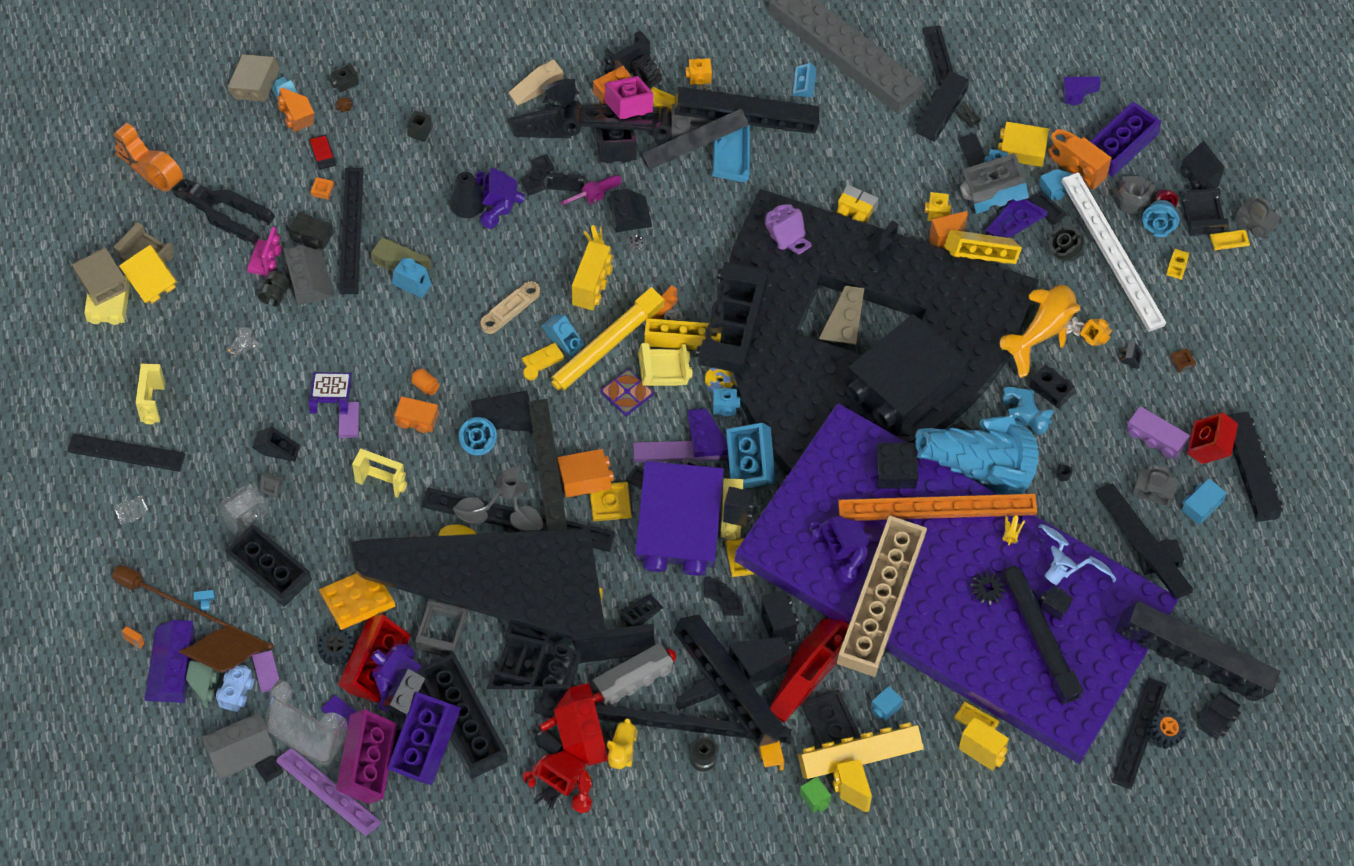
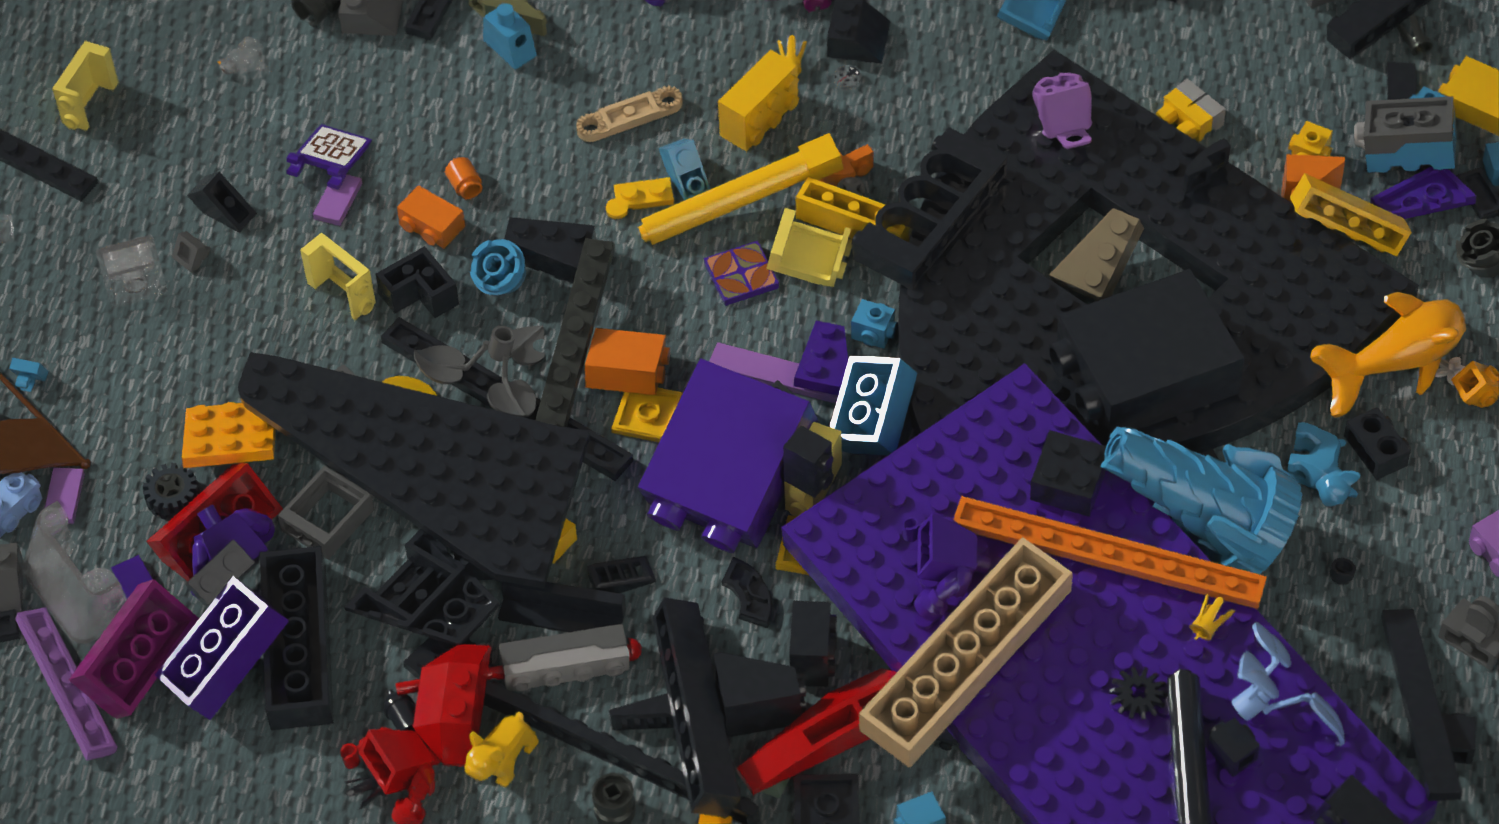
camera: 25 degrees right, 5 degrees down
(268, 565) = (131, 354): black brick -> none
(431, 458) = (415, 279): none -> black brick
(712, 376) = (879, 283): piece -> none

